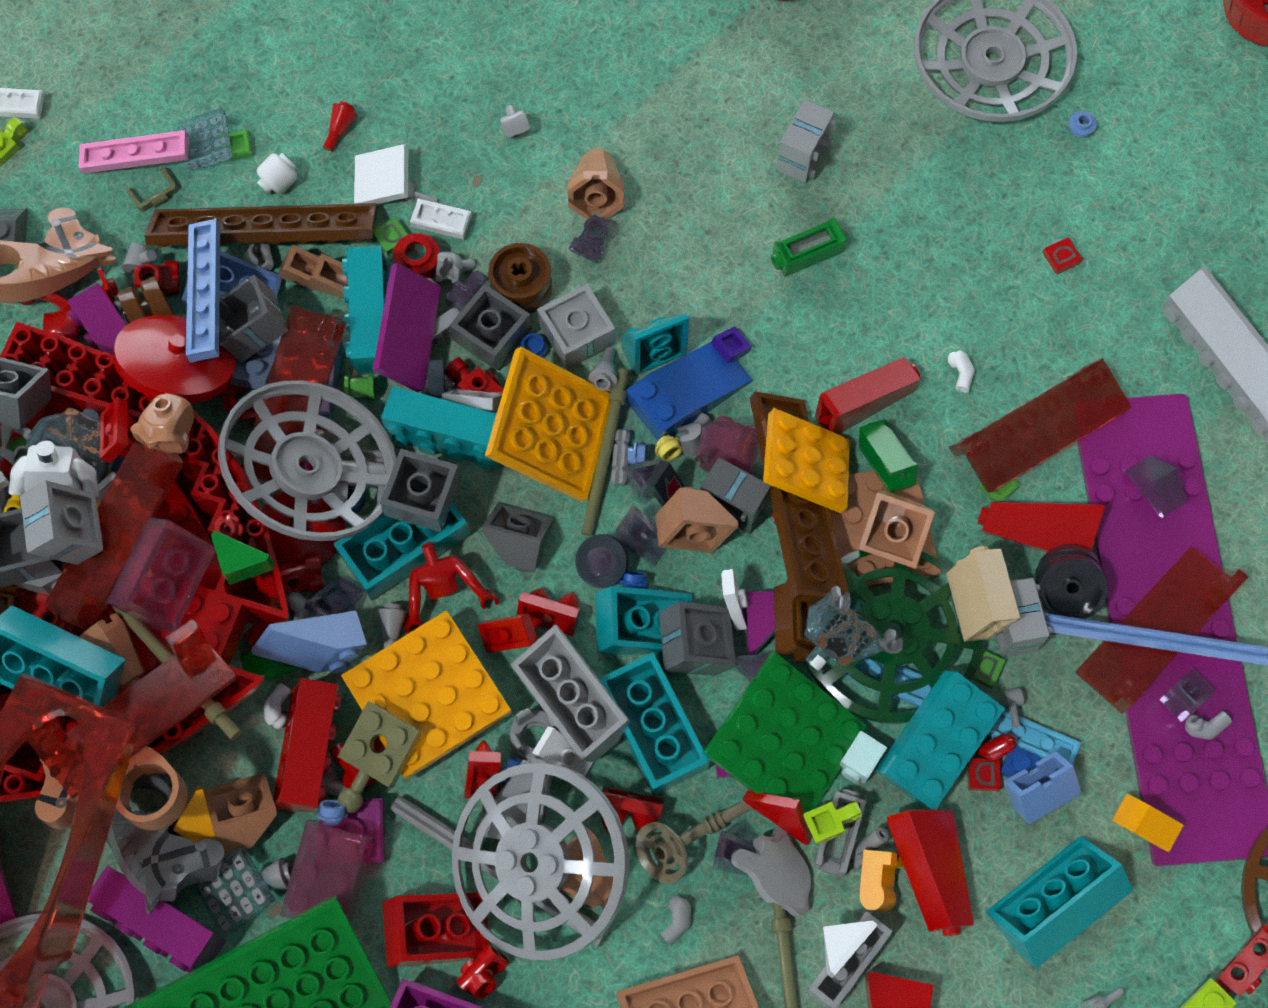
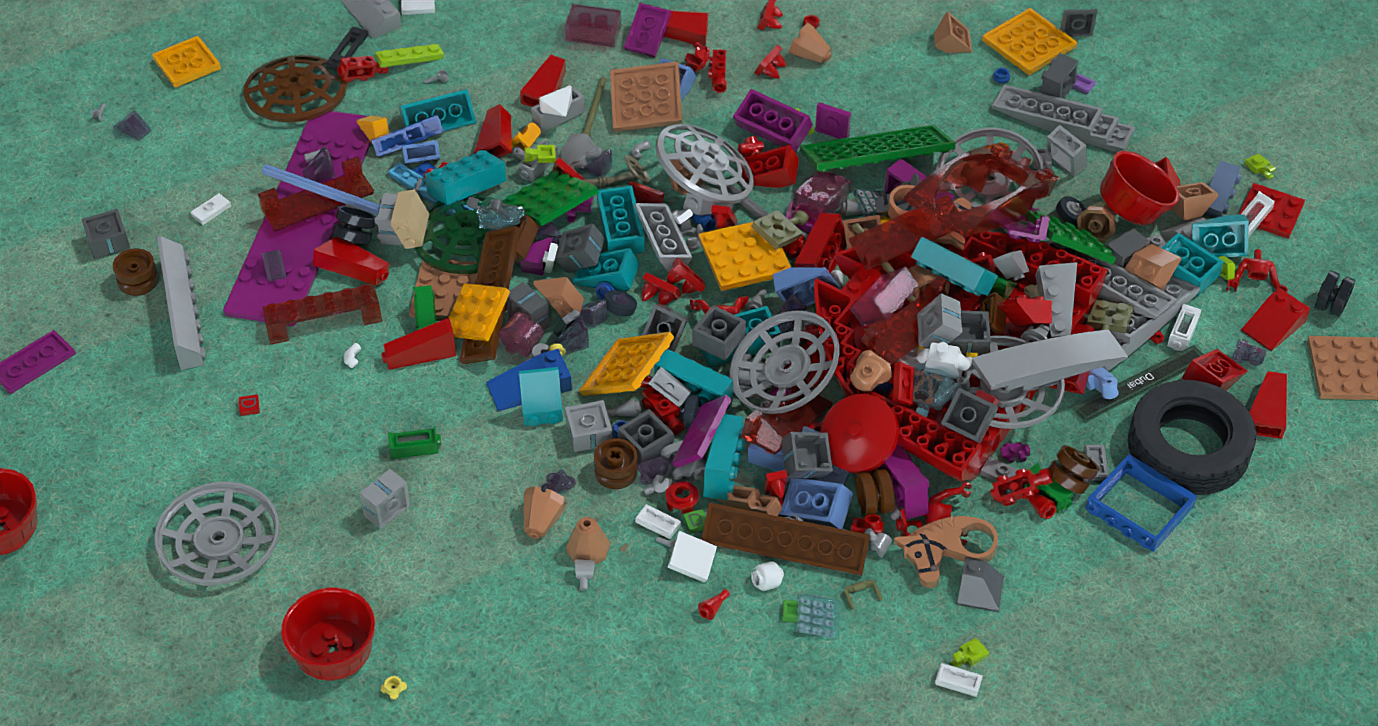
camera: 165 degrees left, 20 degrees down
(134, 151) = (870, 614): bright pink plate -> none
(203, 291) = (832, 468): medium blue plate -> none
(233, 522) = (841, 319): red plate -> none
(239, 560) = (835, 298): green slope -> none
(289, 290) = (775, 484): none -> red tile
(331, 812) = (811, 207): medium blue plate -> none
(522, 161) = (588, 541): none -> nougat cone
(604, 373) = (581, 394): light grey cone -> none
(617, 399) = (578, 382): olive bar -> none
(620, 458) = (587, 357): light grey axle -> none
(637, 453) = (576, 354): medium blue plate -> none
(731, 345) = (491, 401): dark purple tile -> none
(861, 758) = (509, 185): light aqua brick -> none
(897, 528) = (439, 269): nougat slope -> none
(1079, 129) = (184, 484): medium blue plate -> none
(1090, 822) = (407, 135): none -> blue slope

